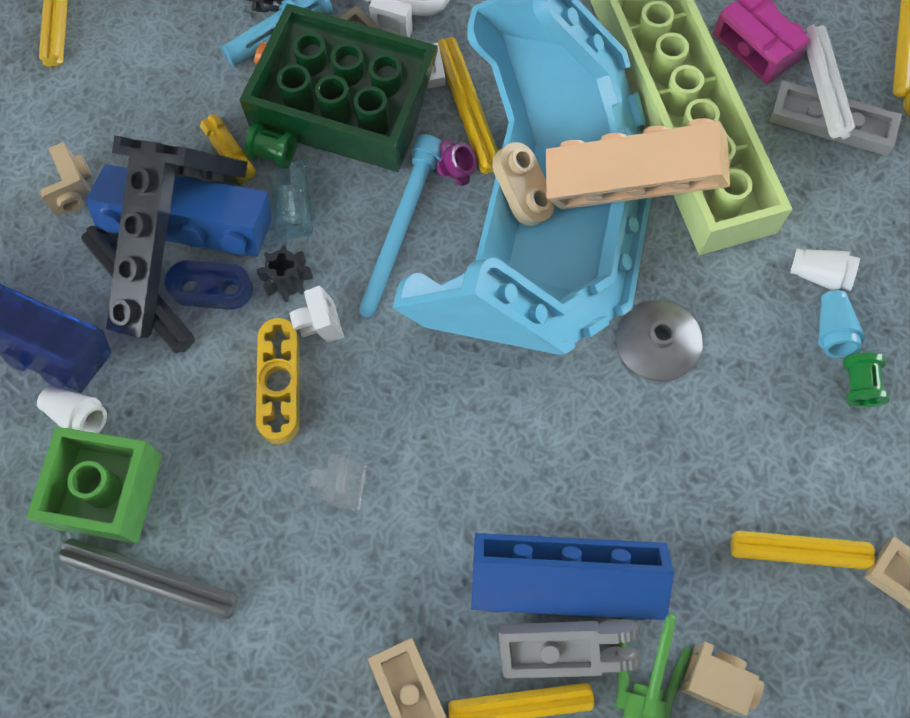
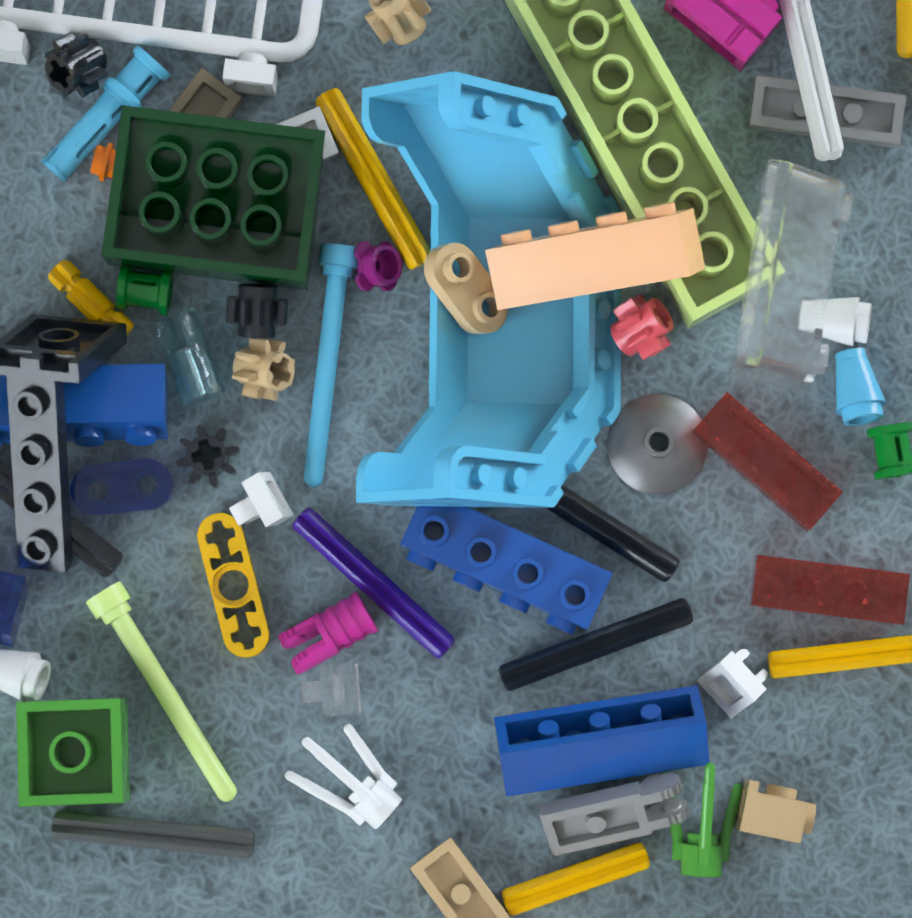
camera: 15 degrees left, 15 degrees up
(172, 375) = (113, 609): none -> yellowish green piece
(347, 215) = (263, 368): none -> tan gear
(347, 433) = (339, 628): none -> dark pink hinge
(349, 587) = (372, 798): none -> white plant
(353, 172) = (257, 310): none -> black gear
(397, 403) = (373, 582): none -> dark purple axle
(513, 403) = (507, 561): none -> blue brick
(578, 492) = (596, 644): none -> black axle
(608, 401) = (615, 535): none -> black axle
(662, 241) = (641, 327): none -> coral gear
(698, 551) = (733, 683): none -> white tile
(754, 369) = (767, 462): none -> clear red plate
(797, 217) = (789, 276): none -> clear windscreen
(797, 487) = (829, 590): none -> clear red plate

